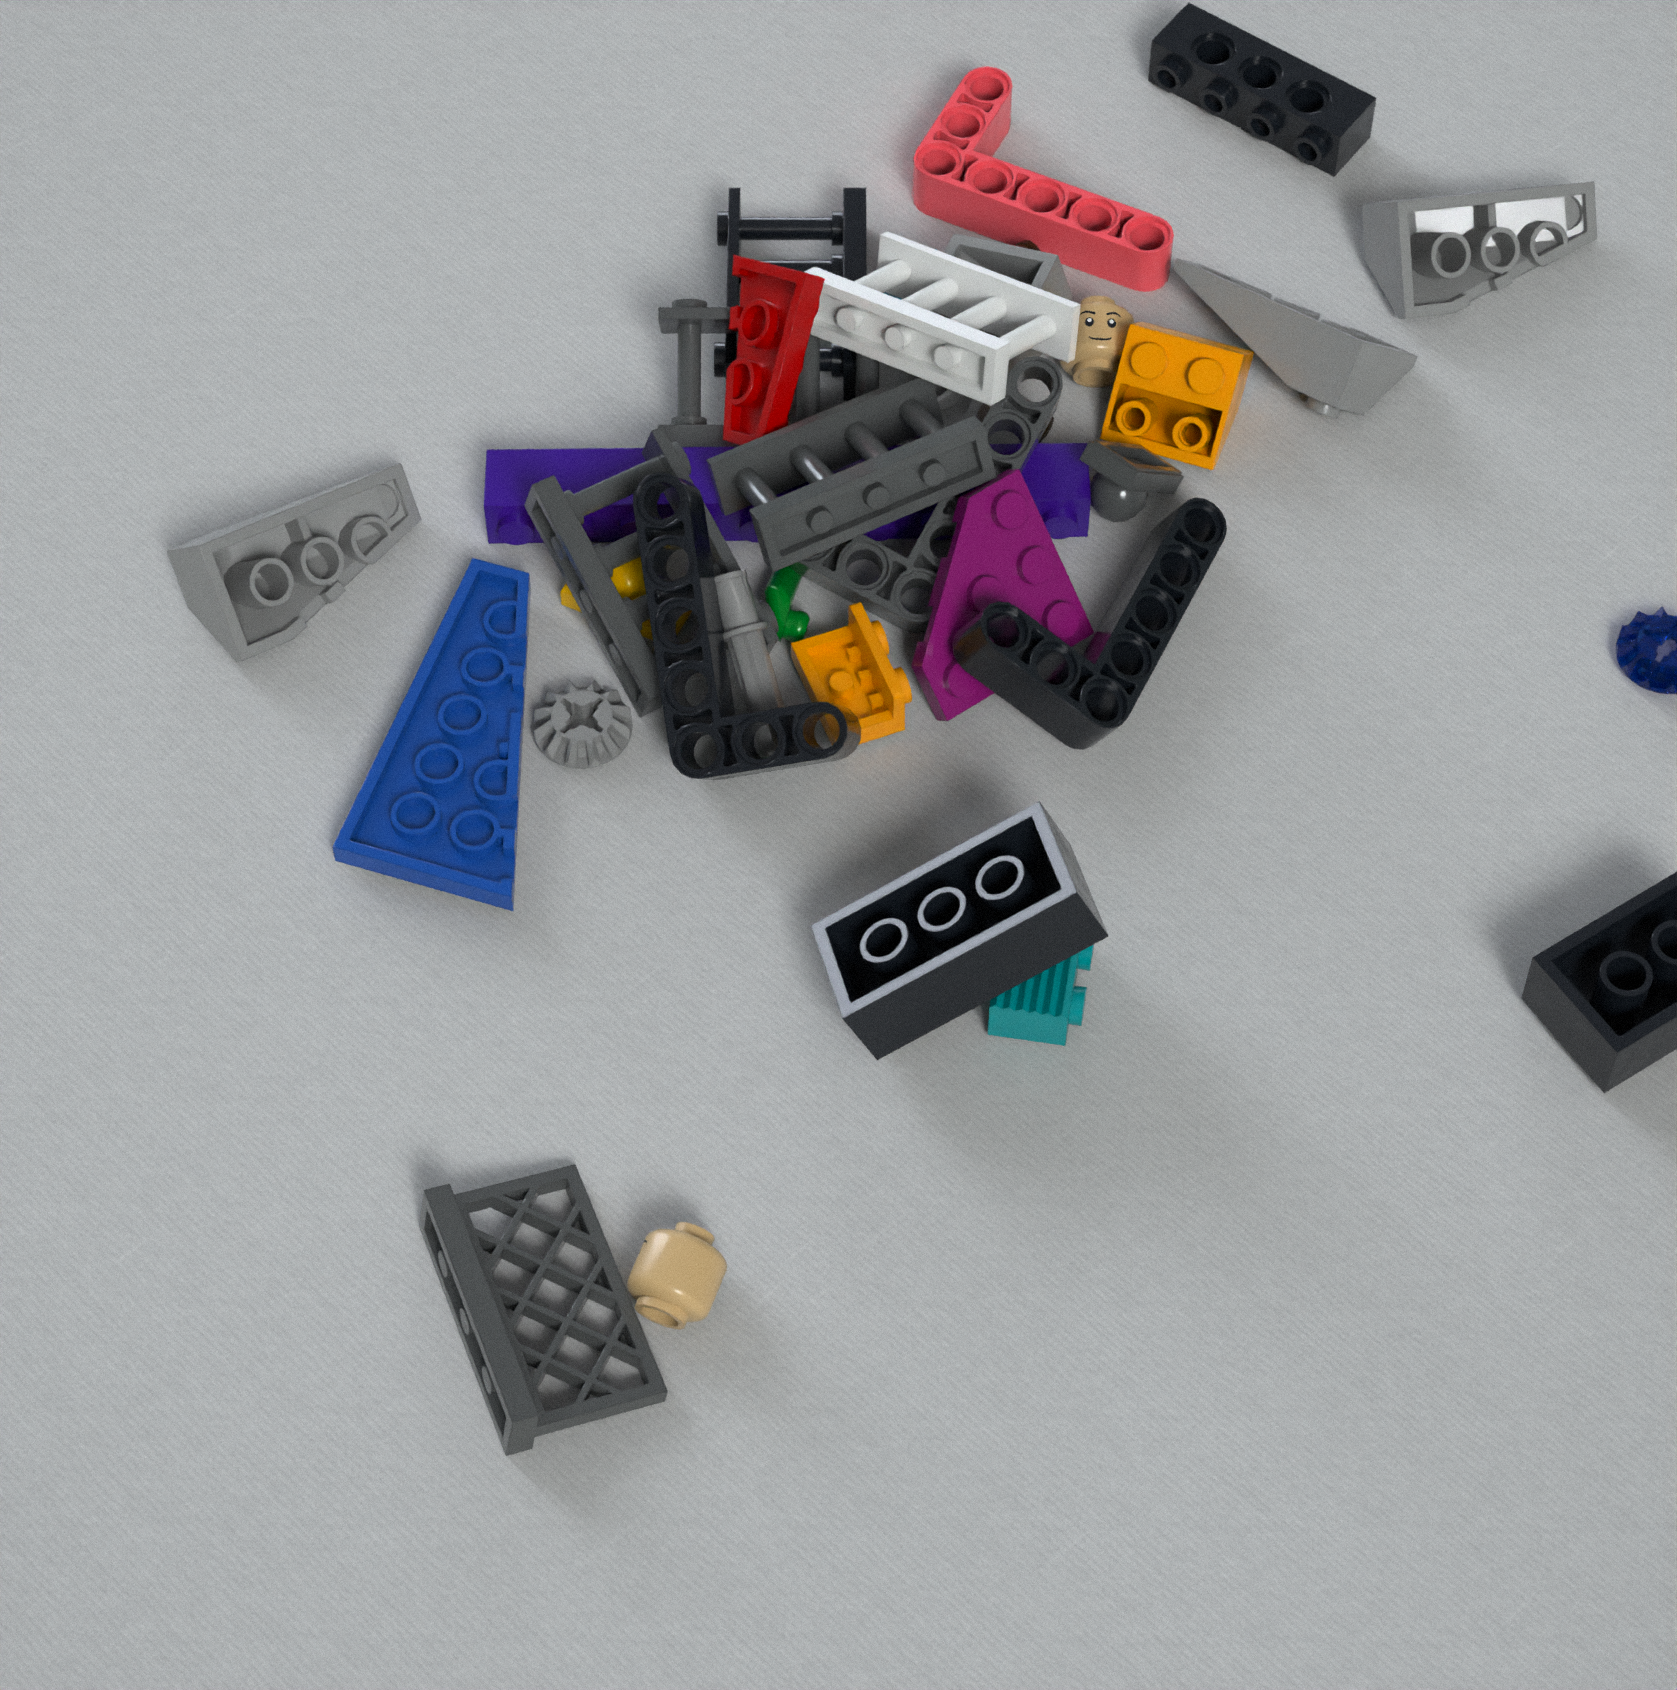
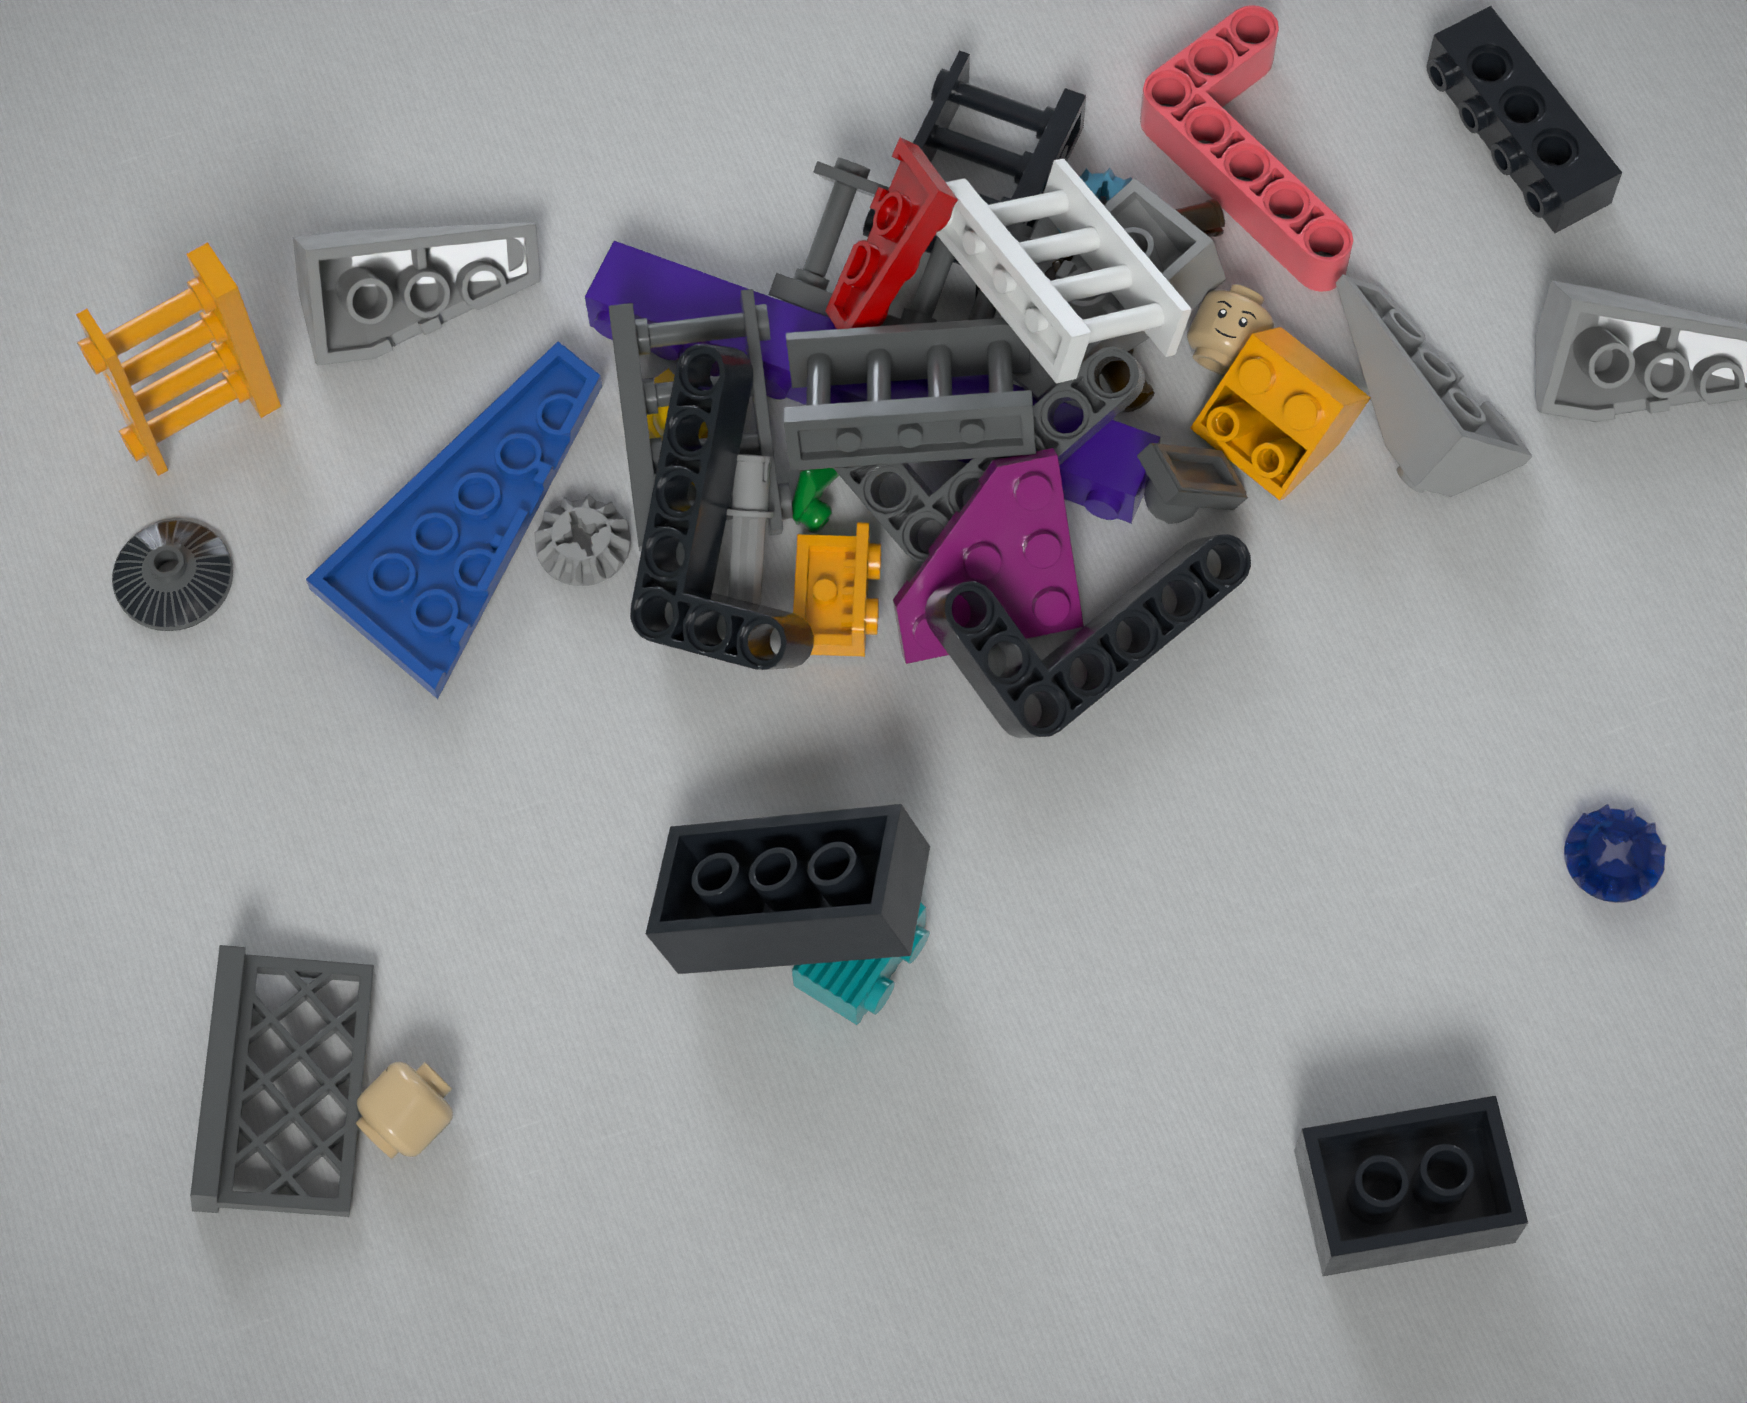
camera: 25 degrees right, 10 degrees up
(174, 674) = (233, 351): none -> light orange fence
(190, 918) = (175, 597): none -> dish

